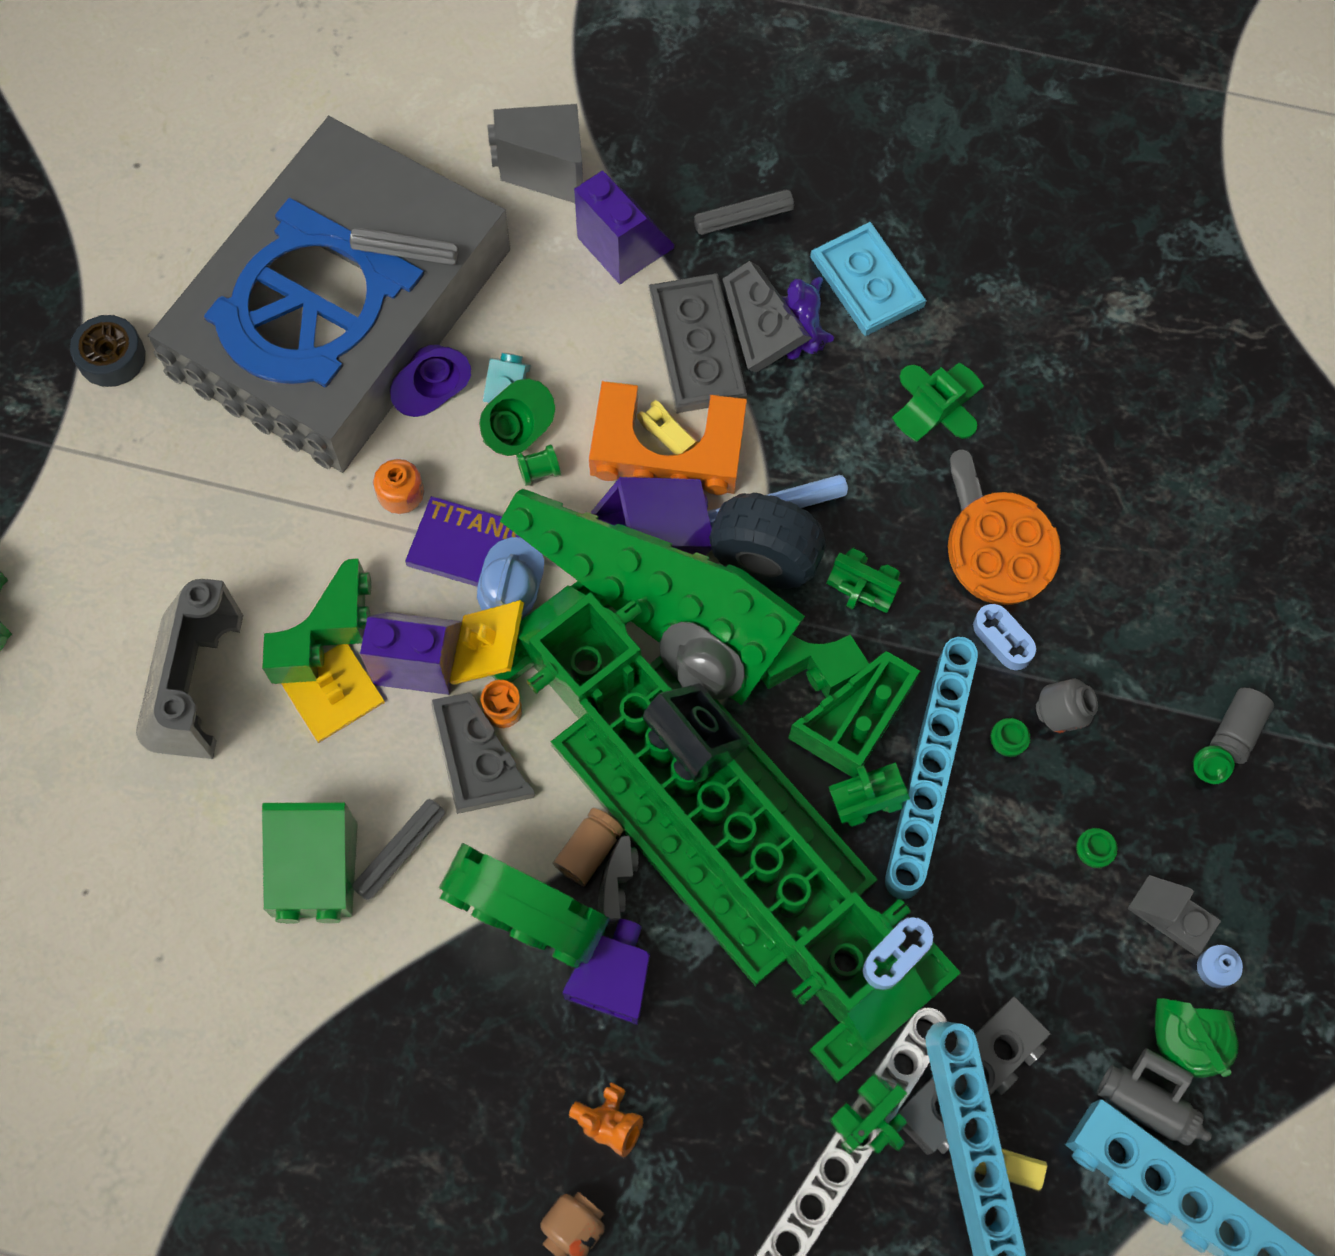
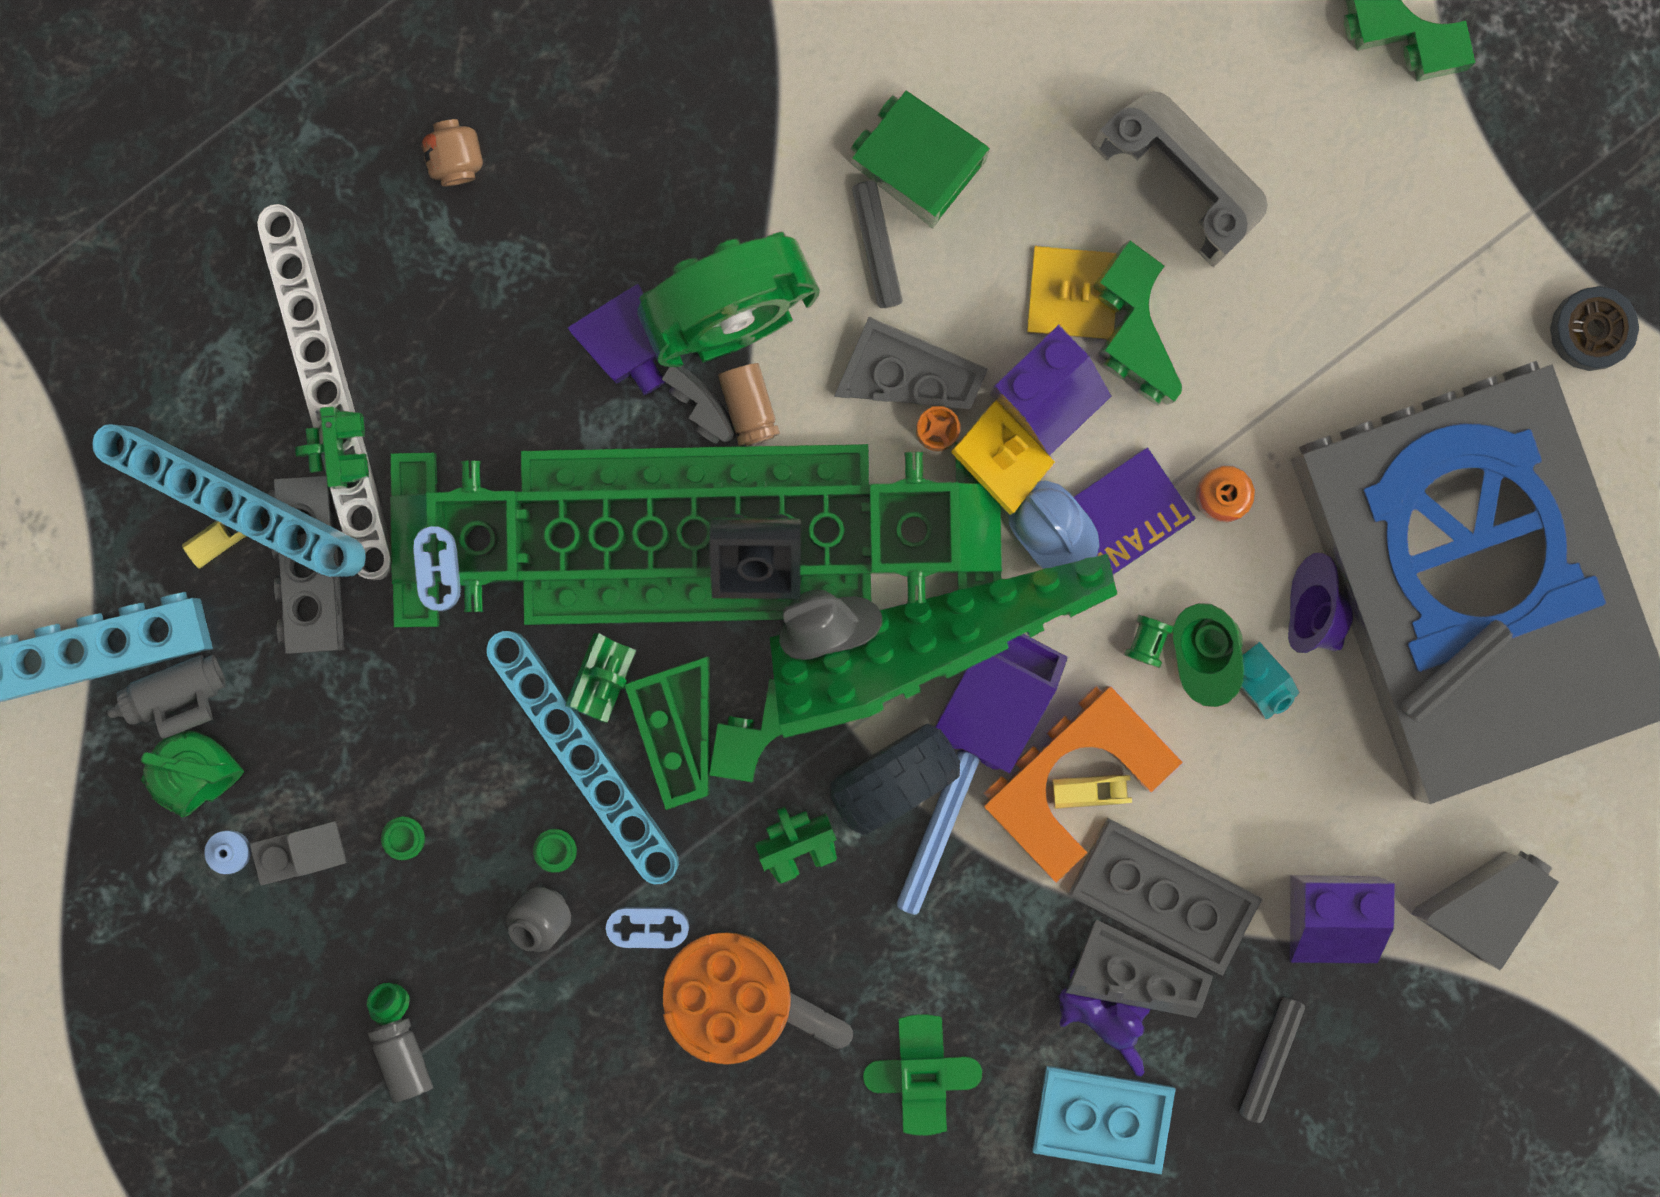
camera: 135 degrees right, 20 degrees up
(608, 1124) = (509, 242): orange piece -> none

